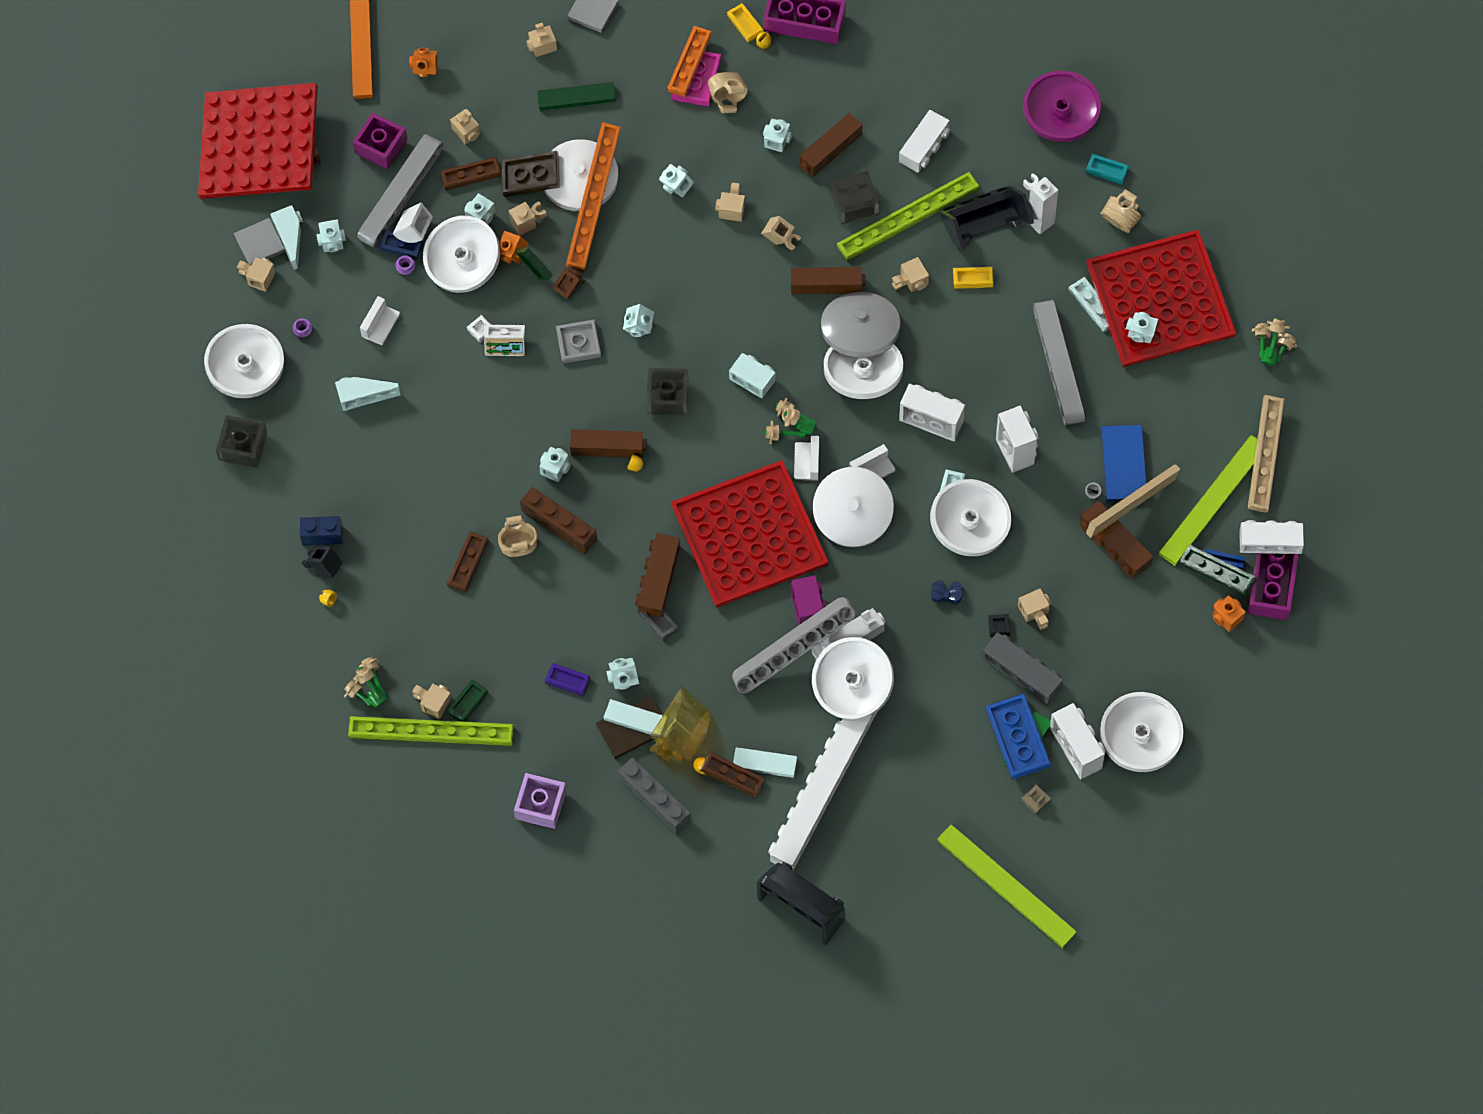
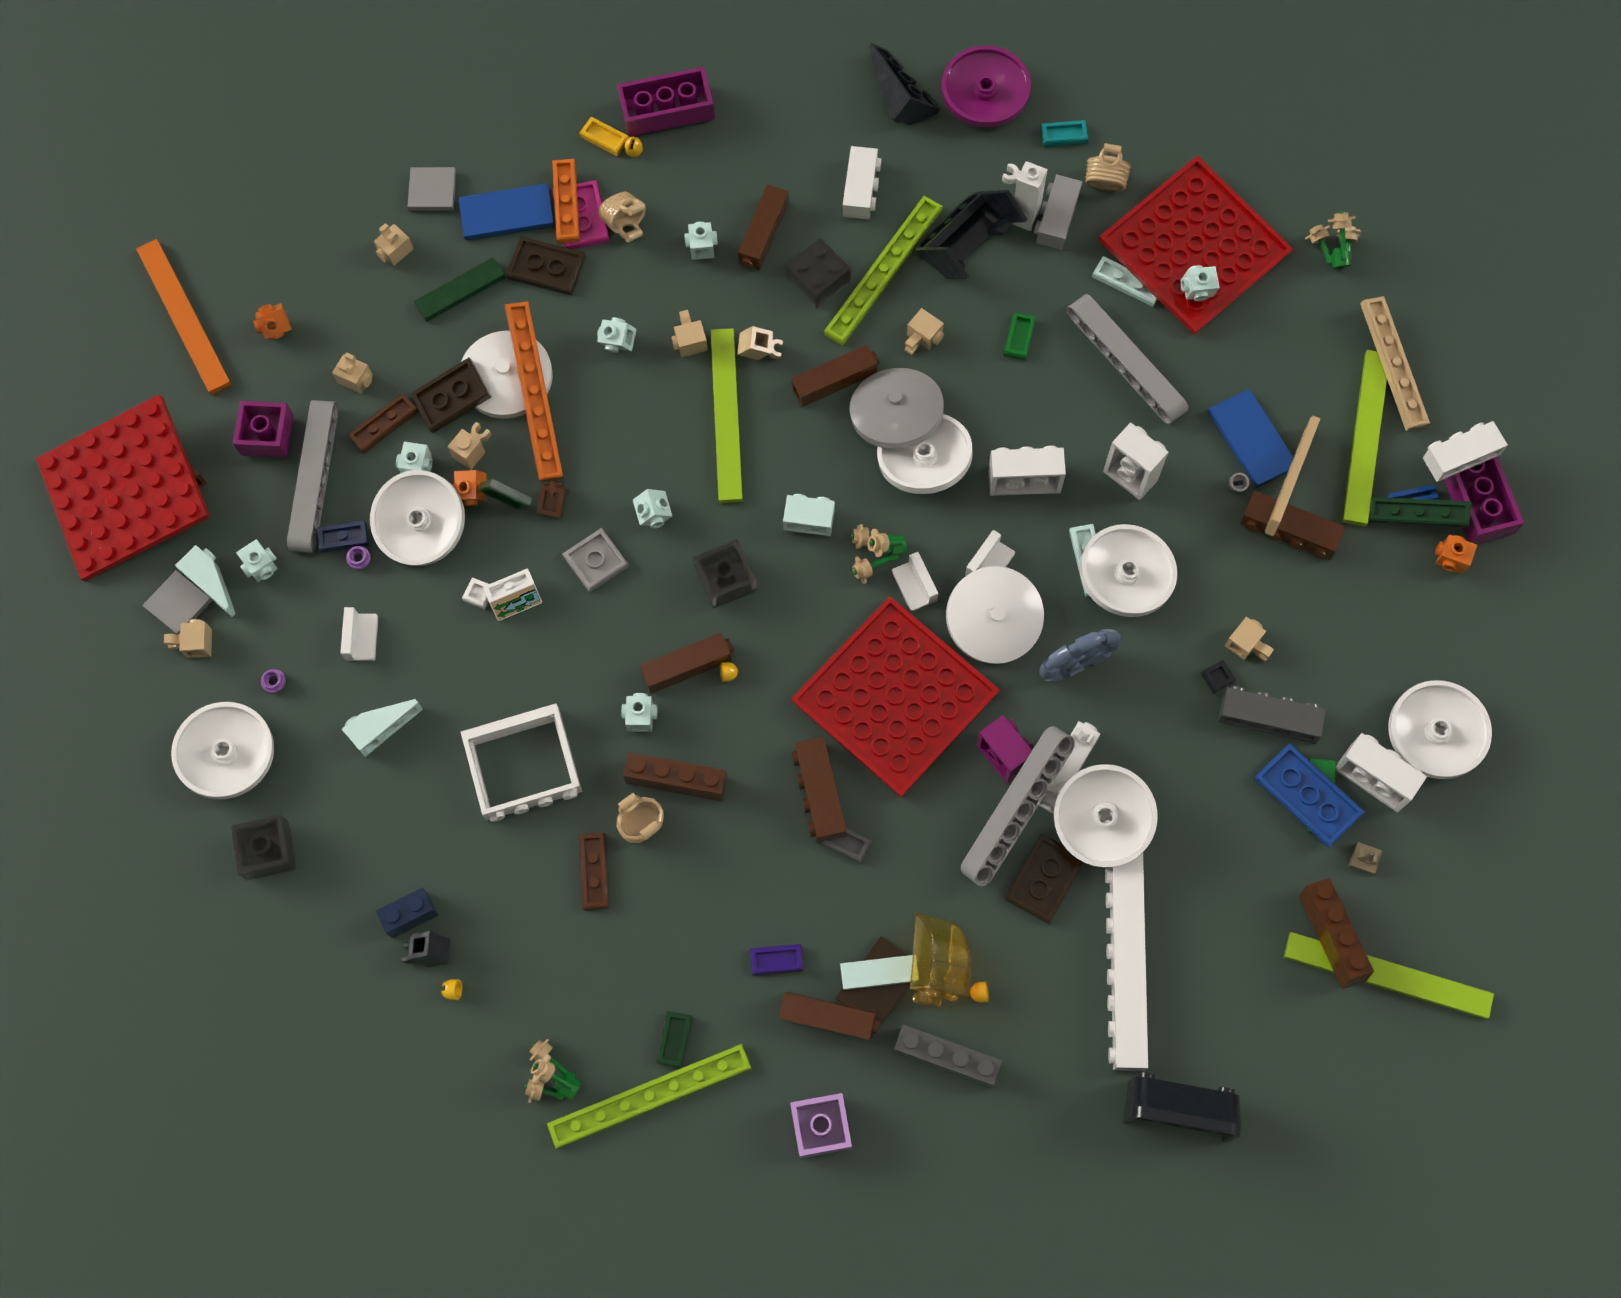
camera: 25 degrees left, 5 degrees up
(413, 224) = (345, 507): white brick -> none
(434, 700) = (637, 1058): tan brick -> none
(455, 433) = (507, 727): none -> white window
(584, 730) = (829, 1015): none -> reddish brown brick
(622, 673) = (838, 925): light aqua brick -> none
(640, 50) = (506, 211): none -> blue tile
(650, 105) = (545, 265): none -> dark brown tile
(730, 276) = (726, 416): none -> lime tile
(732, 774) = (1021, 988): reddish brown tile -> none
(765, 762) = (1048, 955): light aqua tile -> none
(790, 710) = (1044, 879): none -> dark brown tile
(898, 560) = (1085, 651): none -> sand blue plate
(953, 594) = (1152, 664): dark blue piece -> none
(973, 277) = (986, 306): yellow tile -> none
(980, 836) = (1336, 933): none -> reddish brown brick
(986, 311) = (1019, 336): none -> green tile
(993, 83) = (899, 91): none -> black wedge
(1067, 228) = (1057, 212): none -> light grey brick

